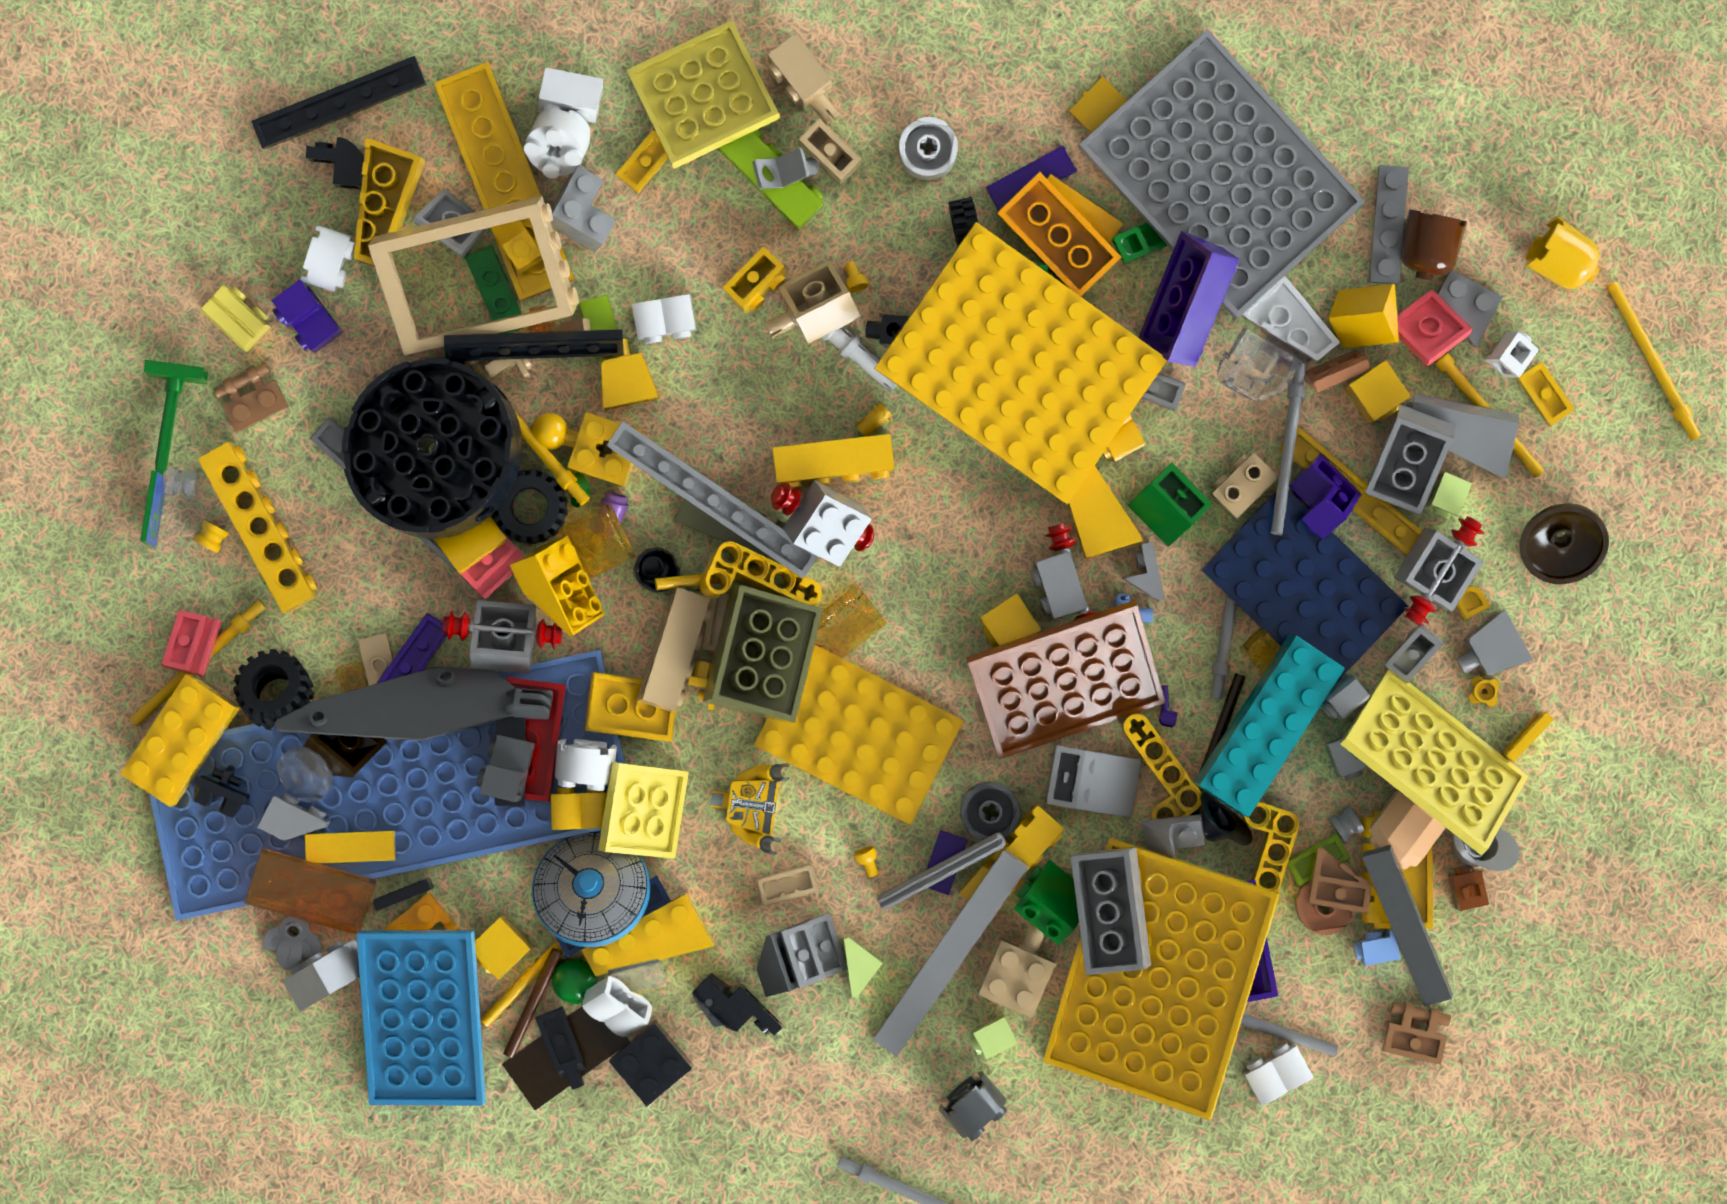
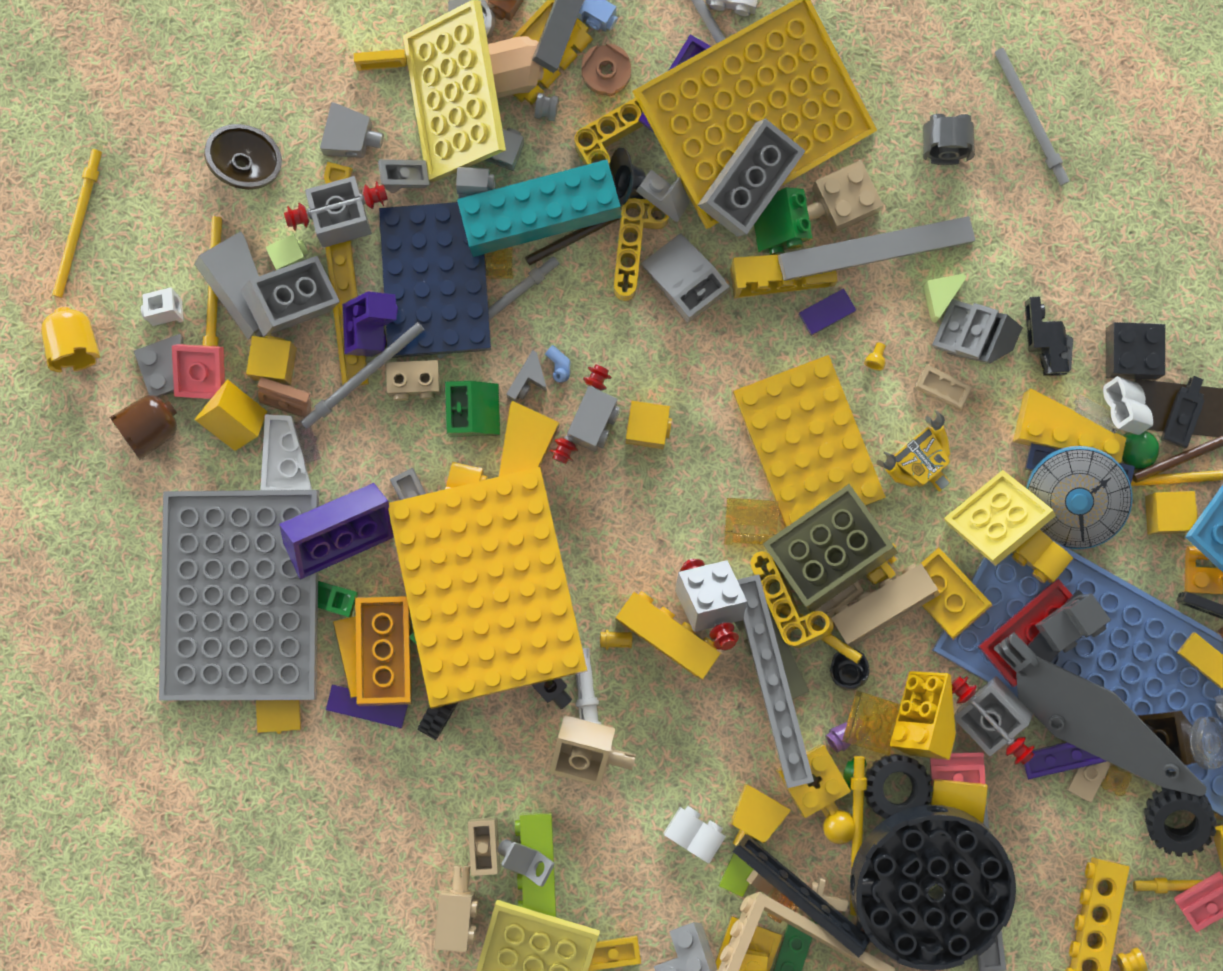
camera: 140 degrees left, 5 degrees down
(584, 763) = (1013, 582): white brick -> none
(755, 281) = (611, 804): yellow brick -> none
(856, 281) = (544, 742): yellow piece -> none
(941, 870) = (835, 304): light grey axle -> none
(943, 141) = (401, 787): white brick -> none
(983, 795) = (774, 302): dark grey brick -> none
(993, 1037) = (895, 172): yellowish green brick -> none
(1066, 679) = (643, 355): plate -> none
(1167, 717) = (599, 277): dark purple hand -> none
(1256, 367) = (334, 446): clear brick -> none
(1302, 864) = (584, 102): lime tile -> none
(1338, 885) = (588, 71): medium nougat wing -> none
(1388, 224) = (162, 464): light grey plate -> none
(1492, 690) = (376, 107): yellow plate -> none
(1545, 394) = (165, 263): yellow plate -> none

